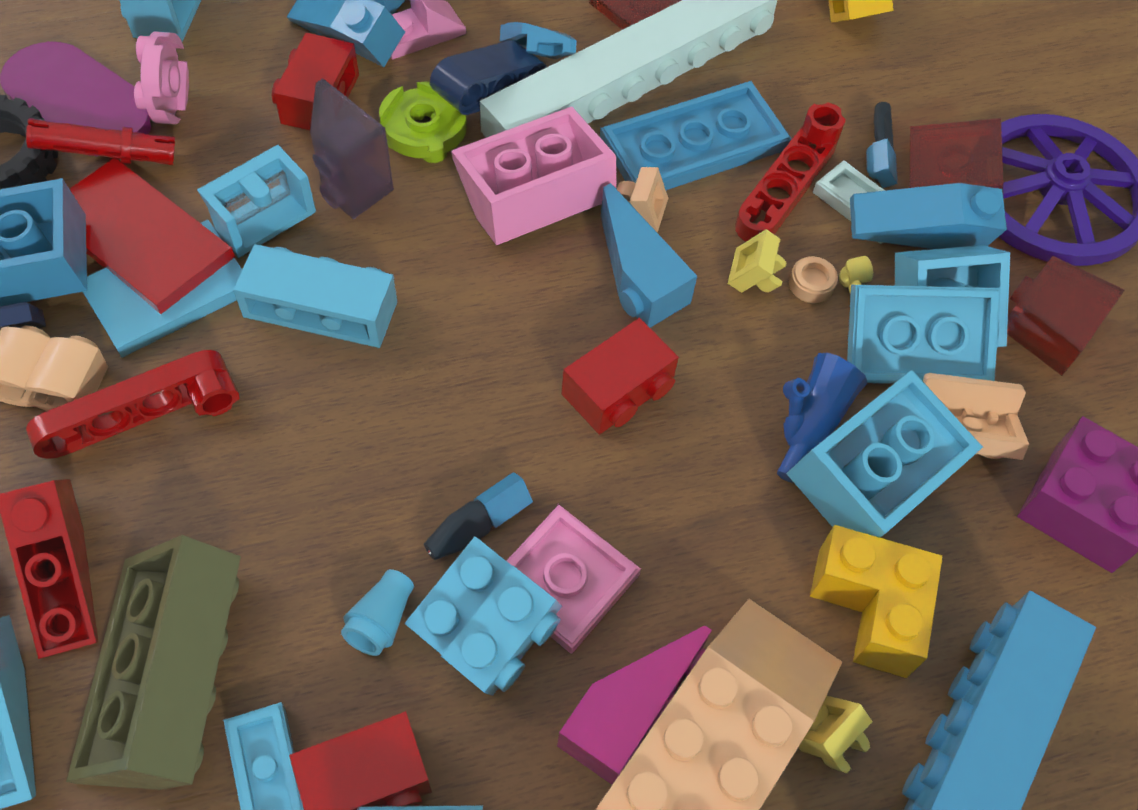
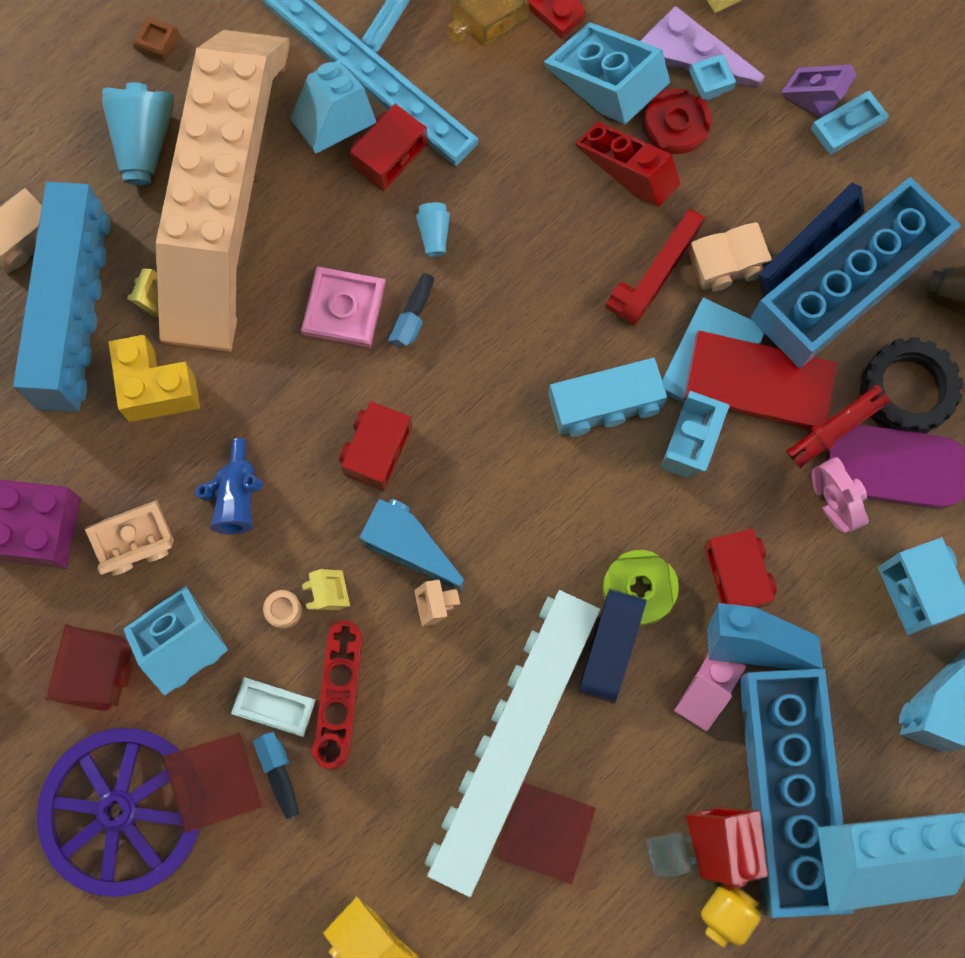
camera: 155 degrees right, 15 degrees up
(157, 668) = (530, 142): olive slope -> none
(348, 152) = (665, 504): clear purple slope -> none
(485, 617) = (371, 253): medium azure plate -> none
(535, 174) = (523, 570): bright pink slope -> none
(539, 40) = (601, 711): dark azure slope -> none
(627, 704) = (270, 246): dark pink slope -> none
(698, 136) = (429, 698): dark azure tile -> none
(856, 272) = (253, 629): light yellow hand -> none
(885, 459) = (175, 463): medium azure slope -> none
(923, 331) = (183, 585): medium azure tile -> none
(930, 216) = (213, 697): dark azure slope -> none

